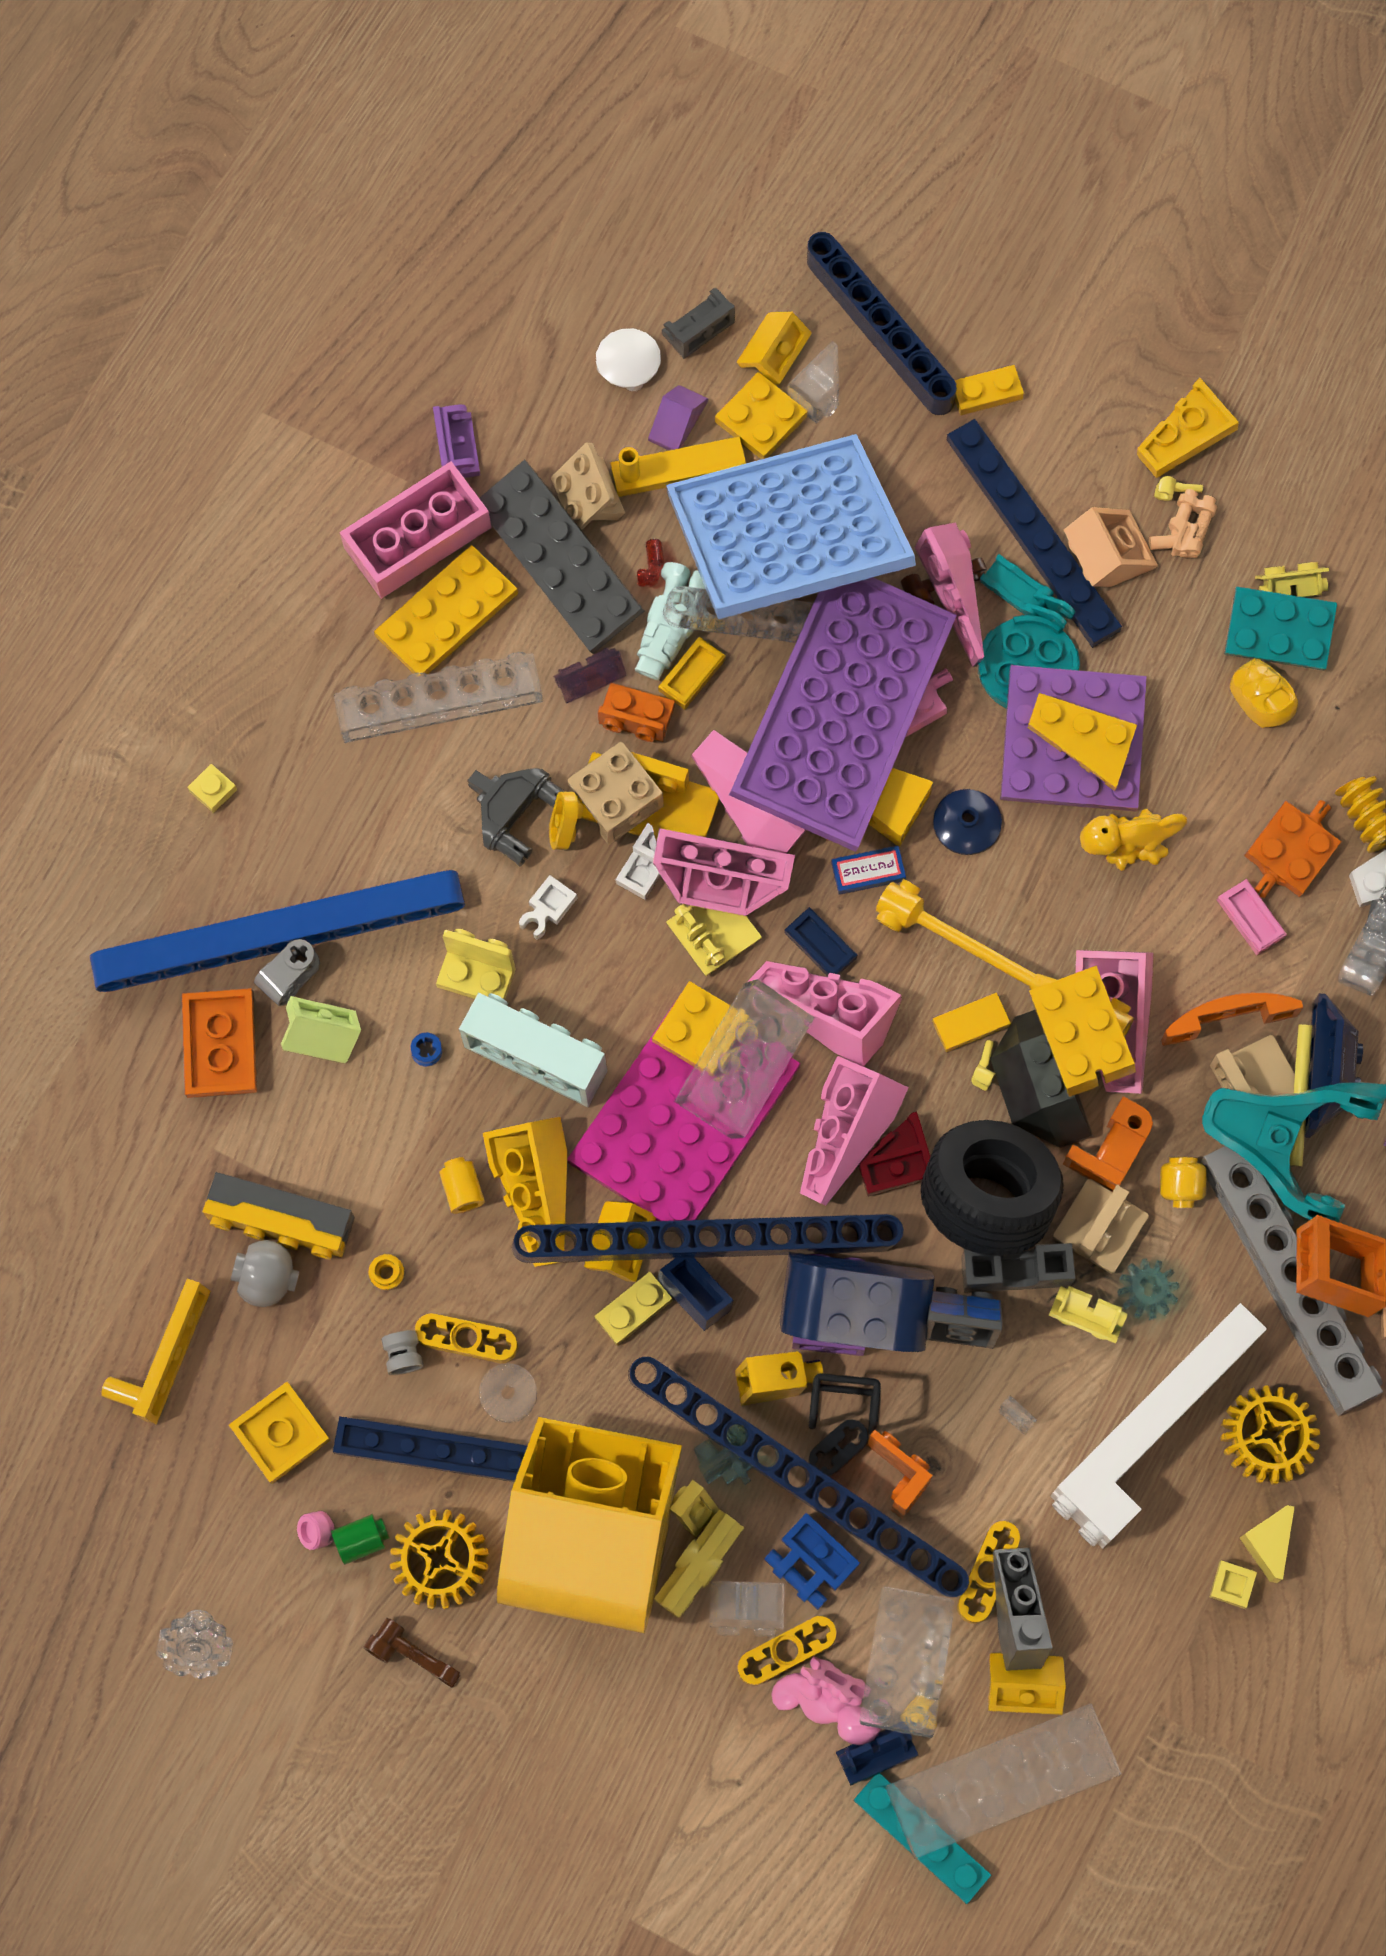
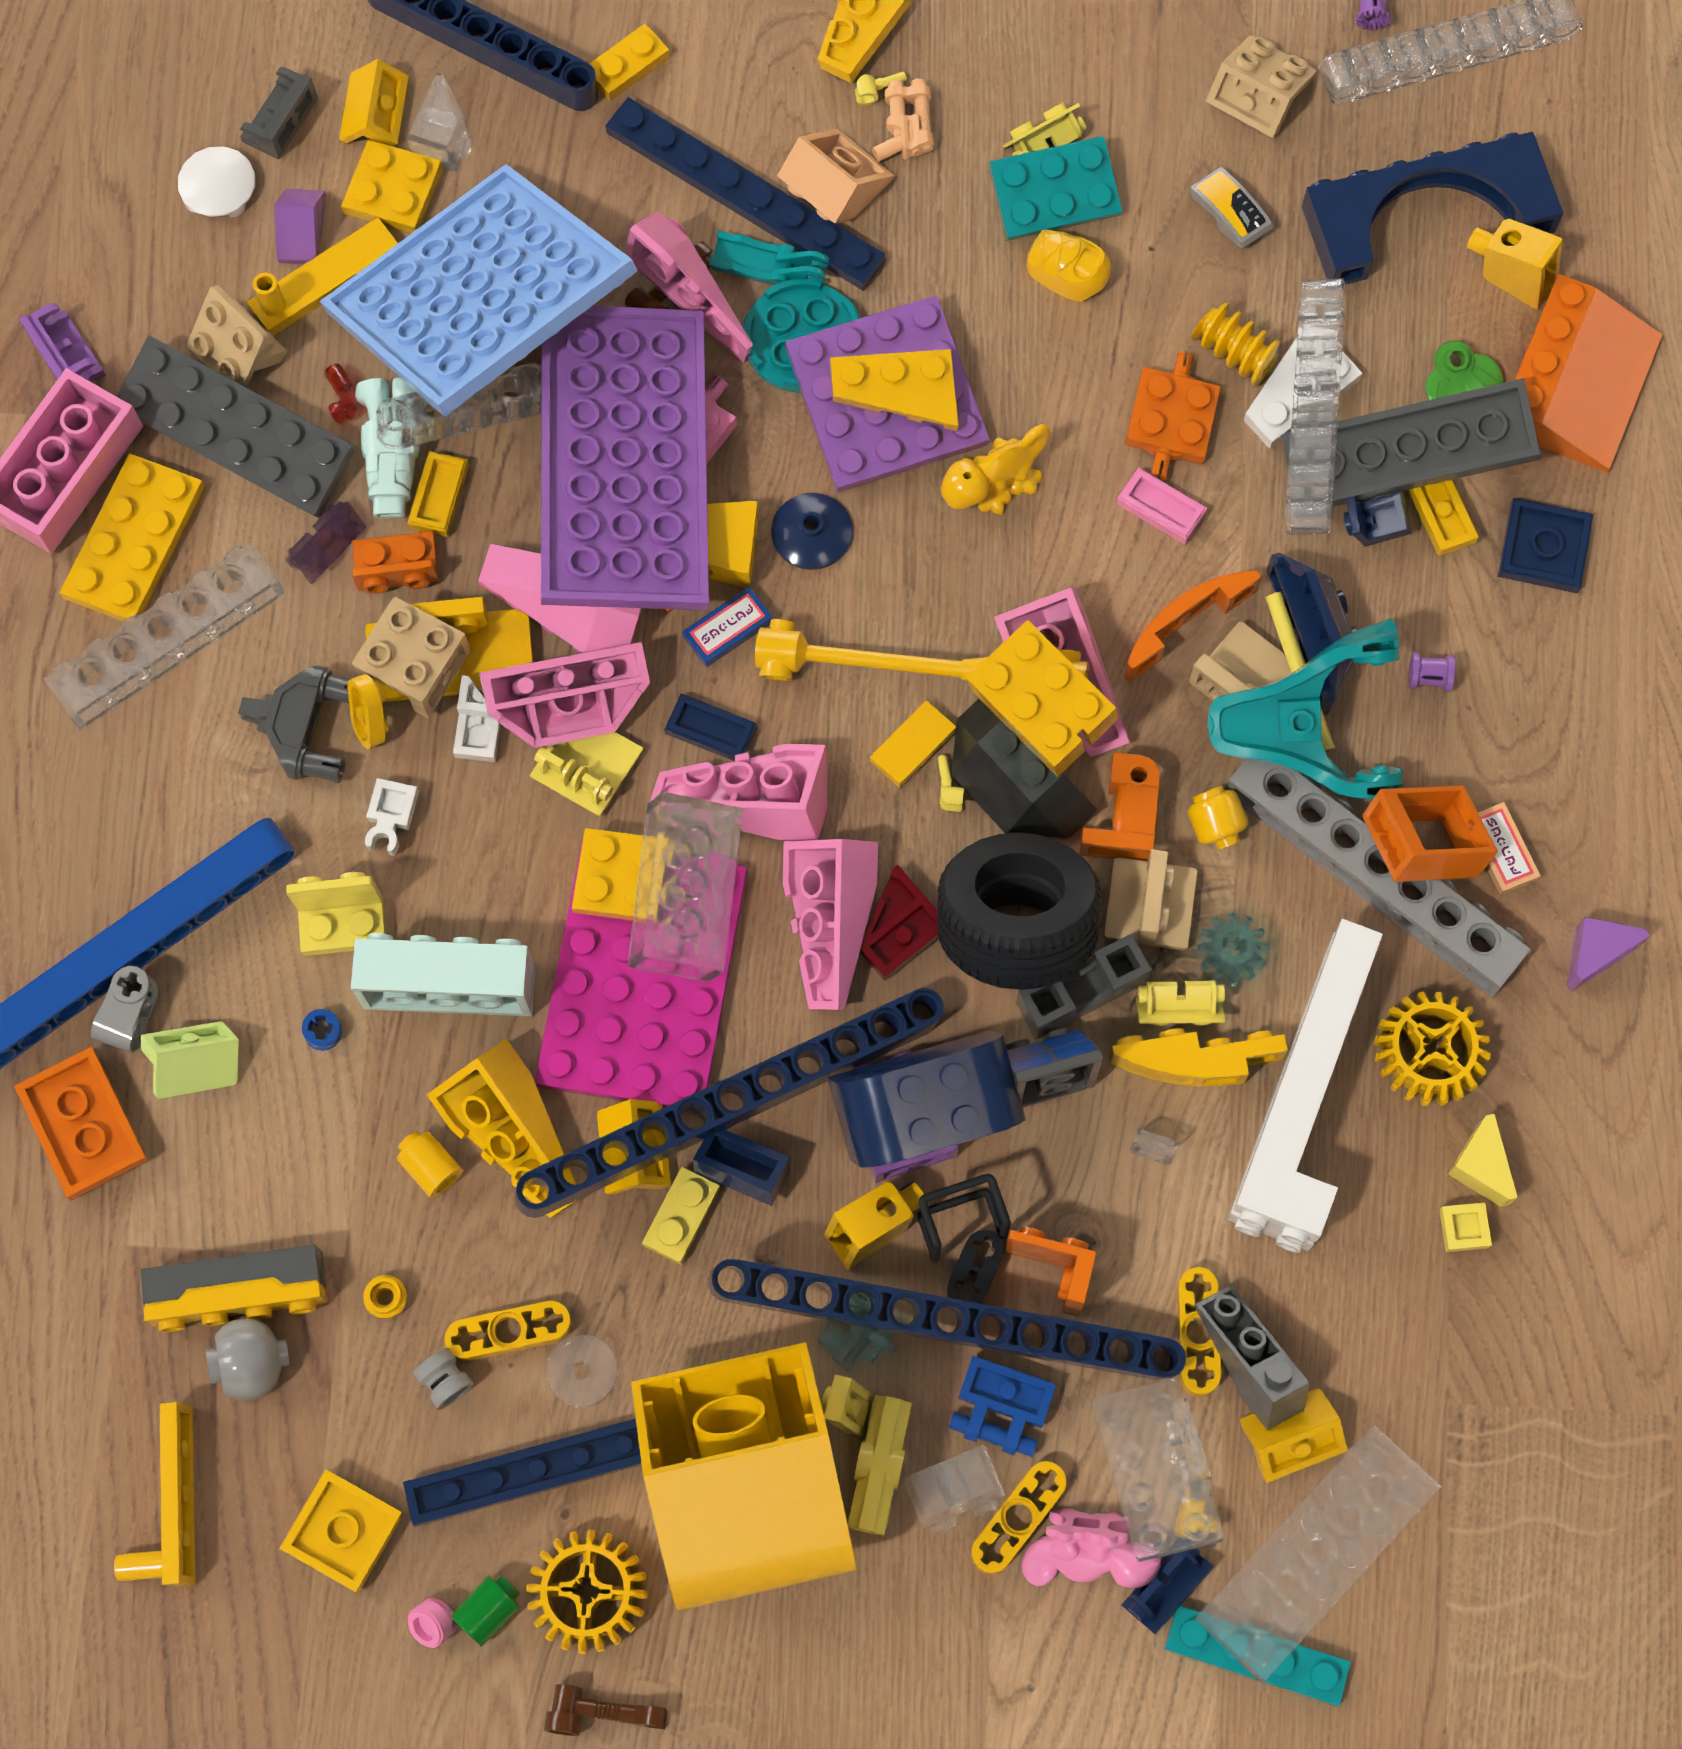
camera: 25 degrees left, 0 degrees up
(1067, 1357) = (1181, 1061): none -> yellow slope

